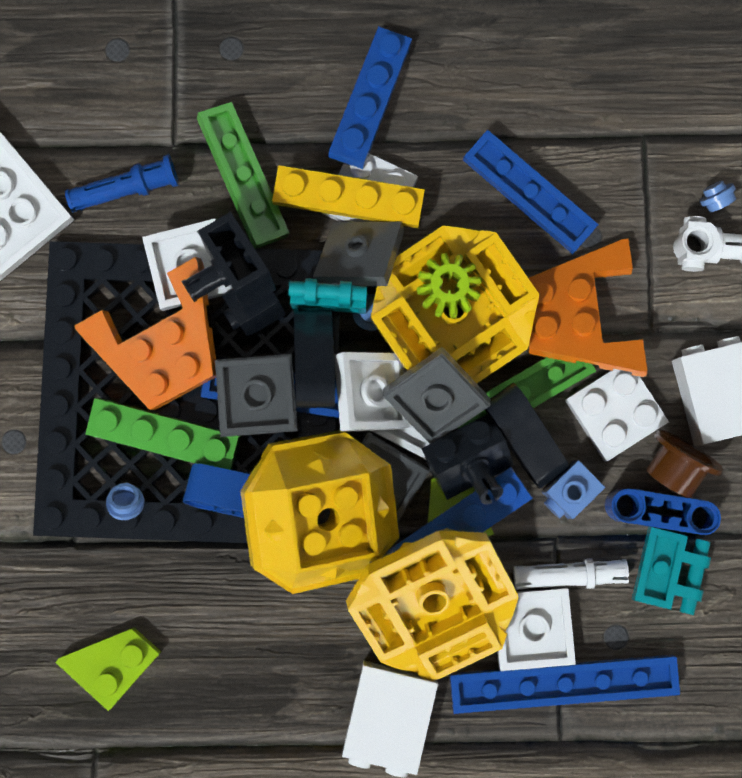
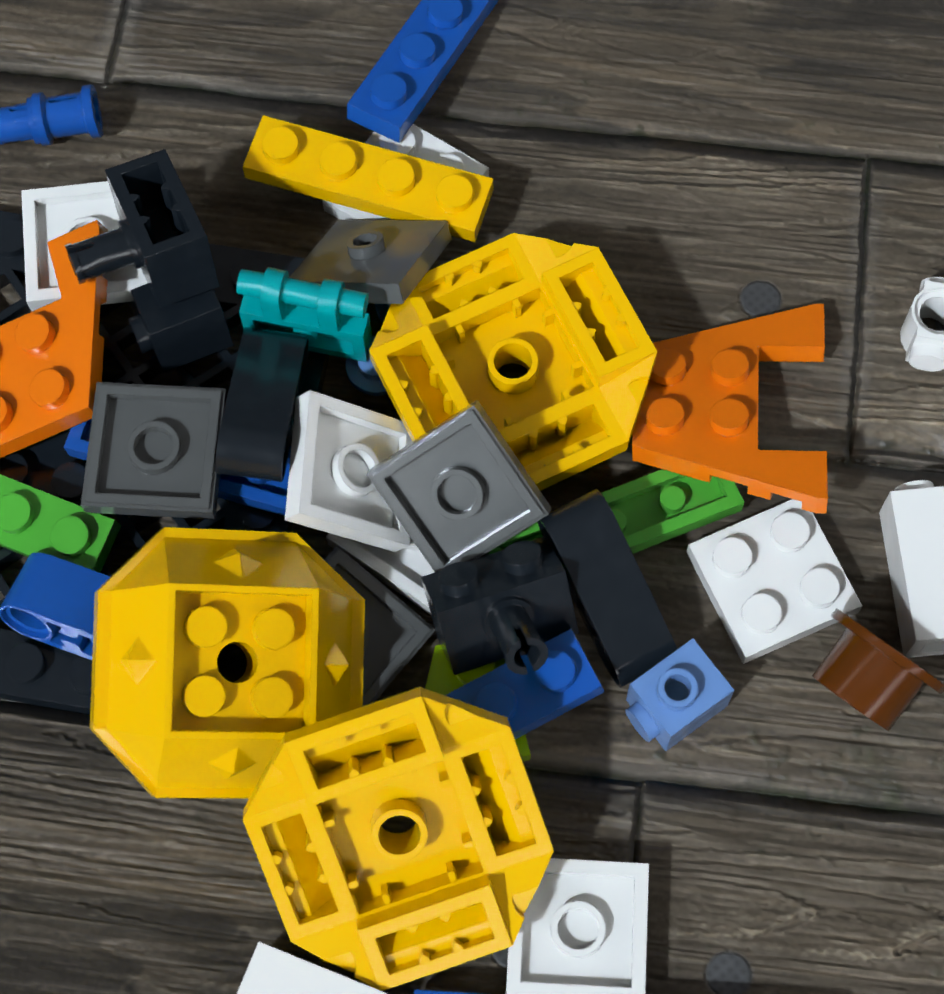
camera: 10 degrees right, 15 degrees down
(242, 175) = (205, 132): bright green plate -> none
(450, 271) = (511, 296): lime gear -> none
(530, 192) = (670, 214): blue plate -> none
(571, 574) = (658, 843): white pin -> none
(661, 568) = (820, 856): teal plate -> none
(681, 523) = (853, 741): blue beam -> none

